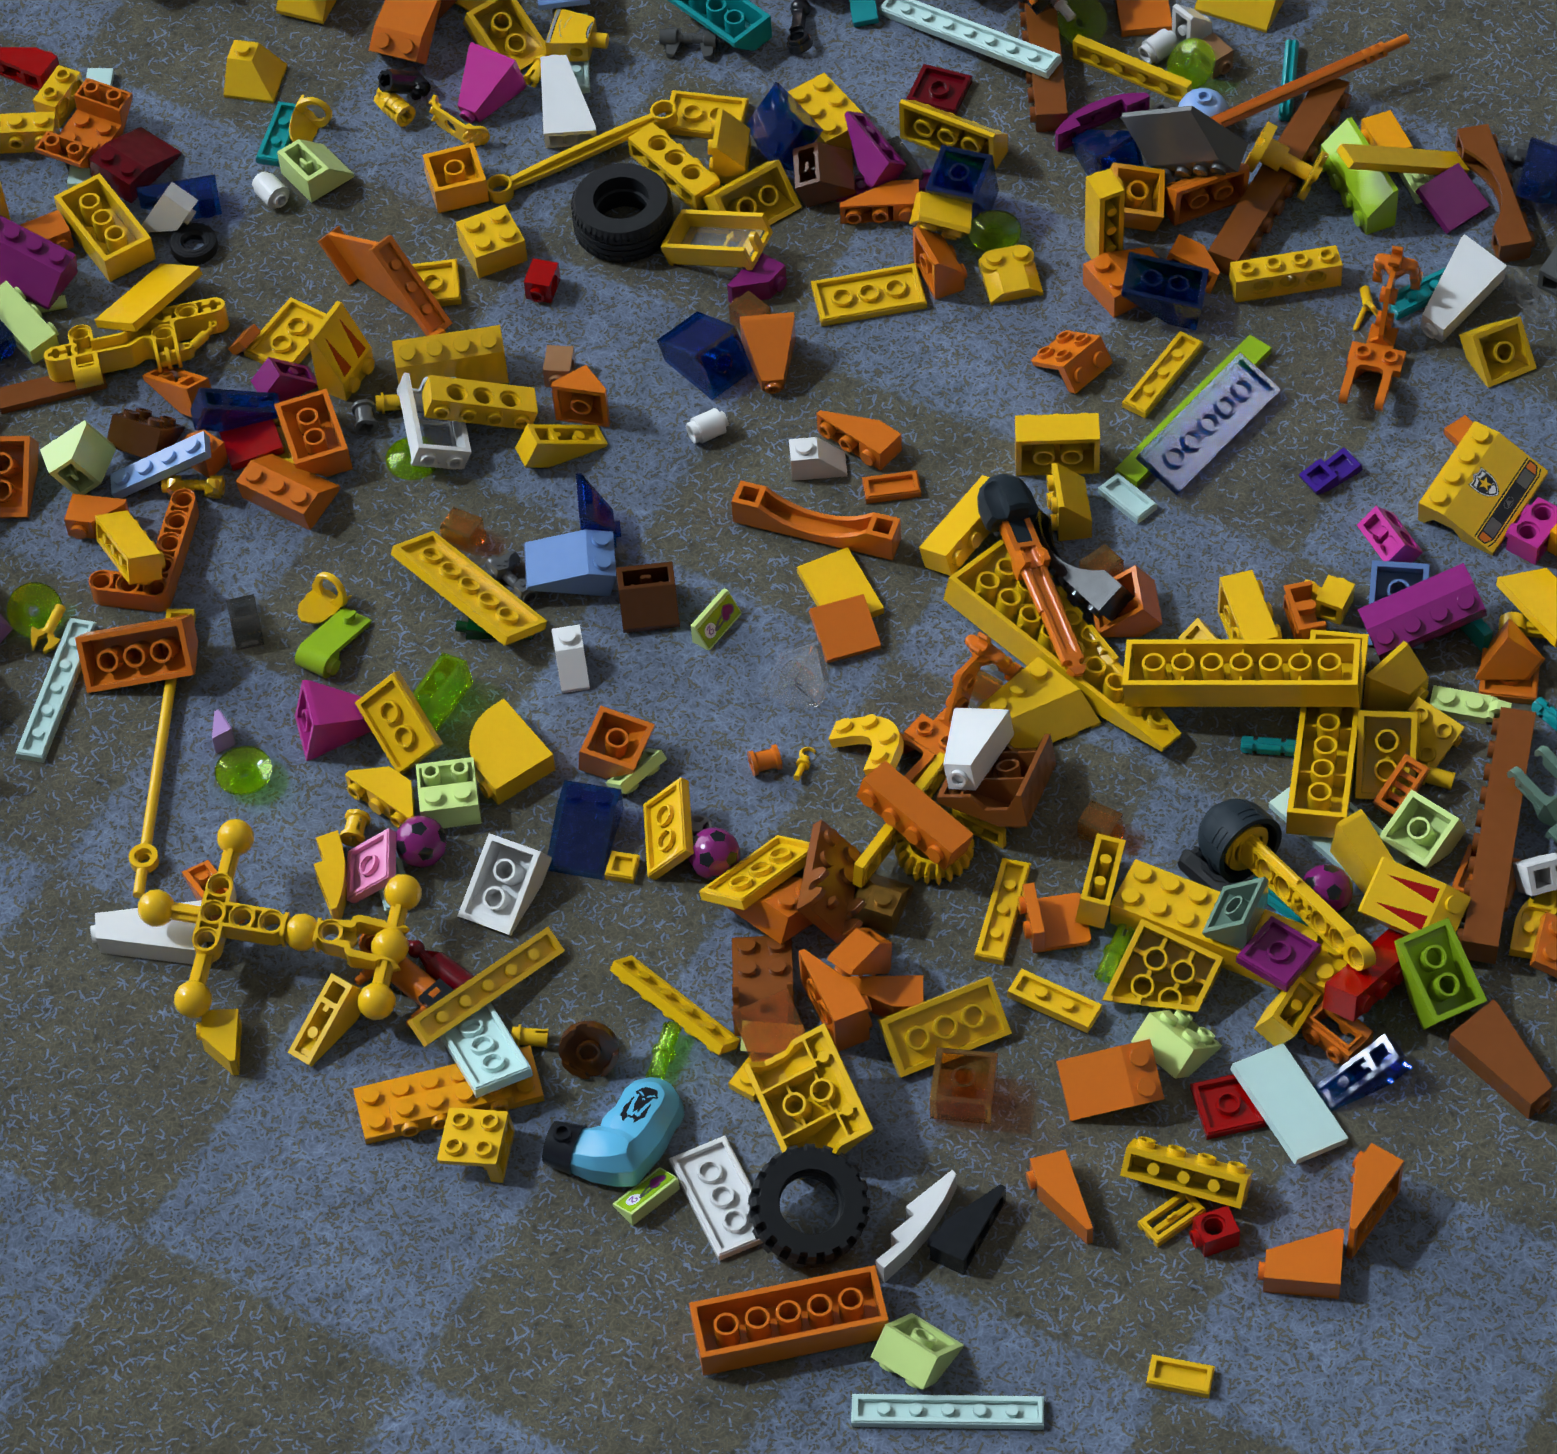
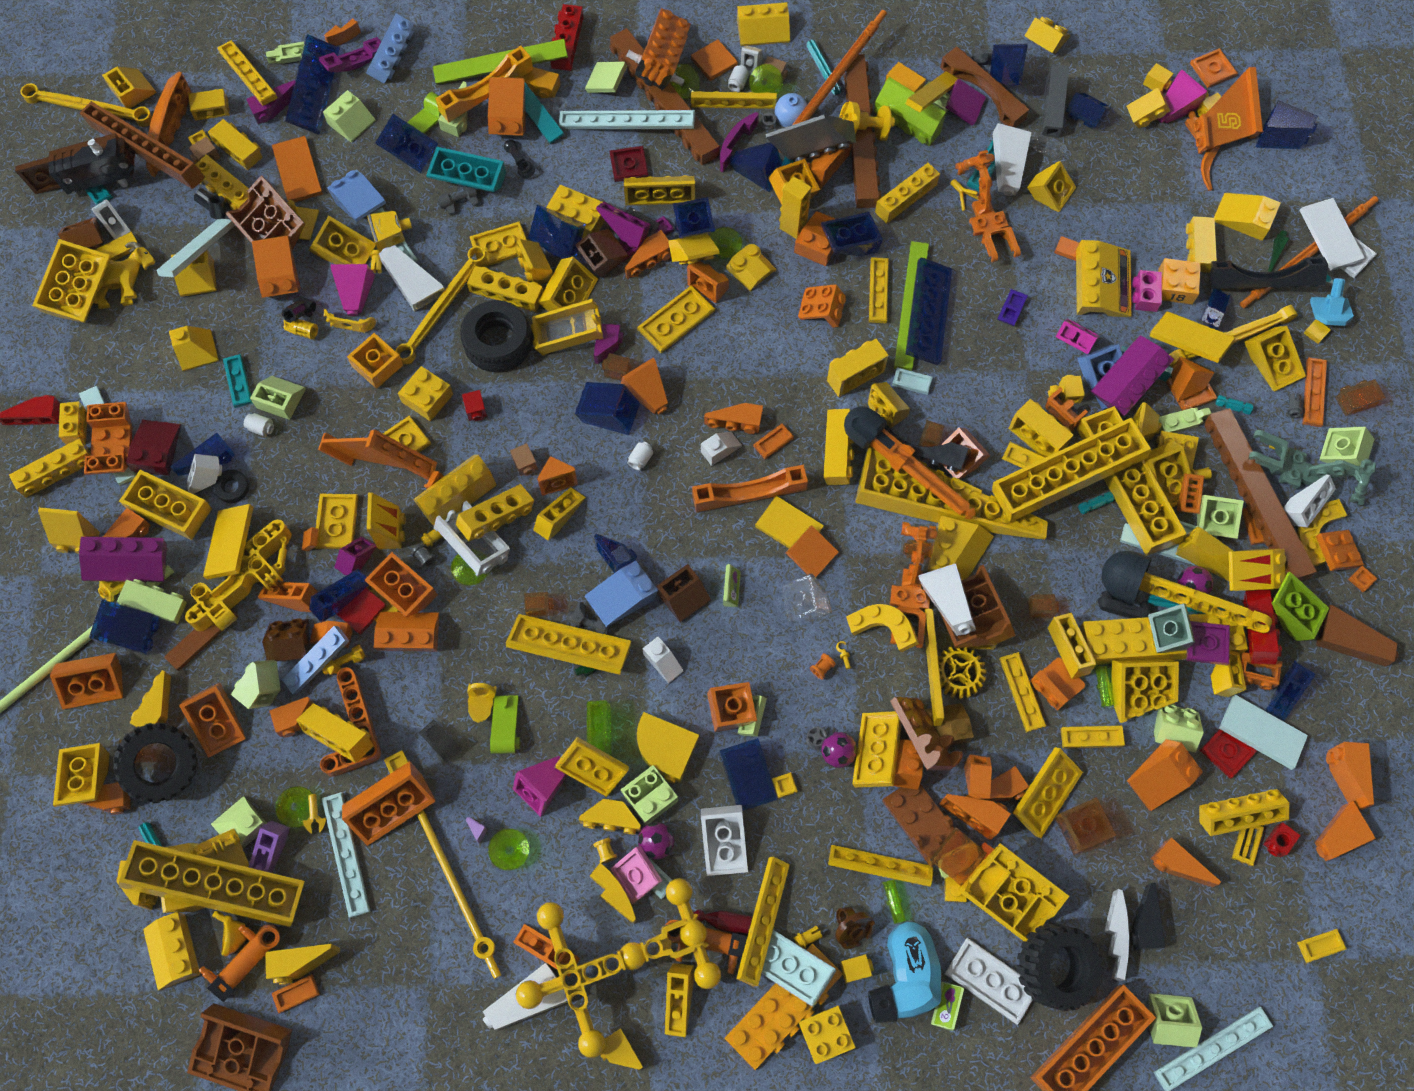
camera: 35 degrees left, 15 degrees up
(304, 122) = (251, 366): yellow piece -> none
(562, 1096) = (856, 968): none -> yellow brick
(668, 828) = (800, 747): yellow tile -> none
(914, 815) = (949, 665): orange brick -> none
(1194, 253) = (849, 206): orange slope -> none

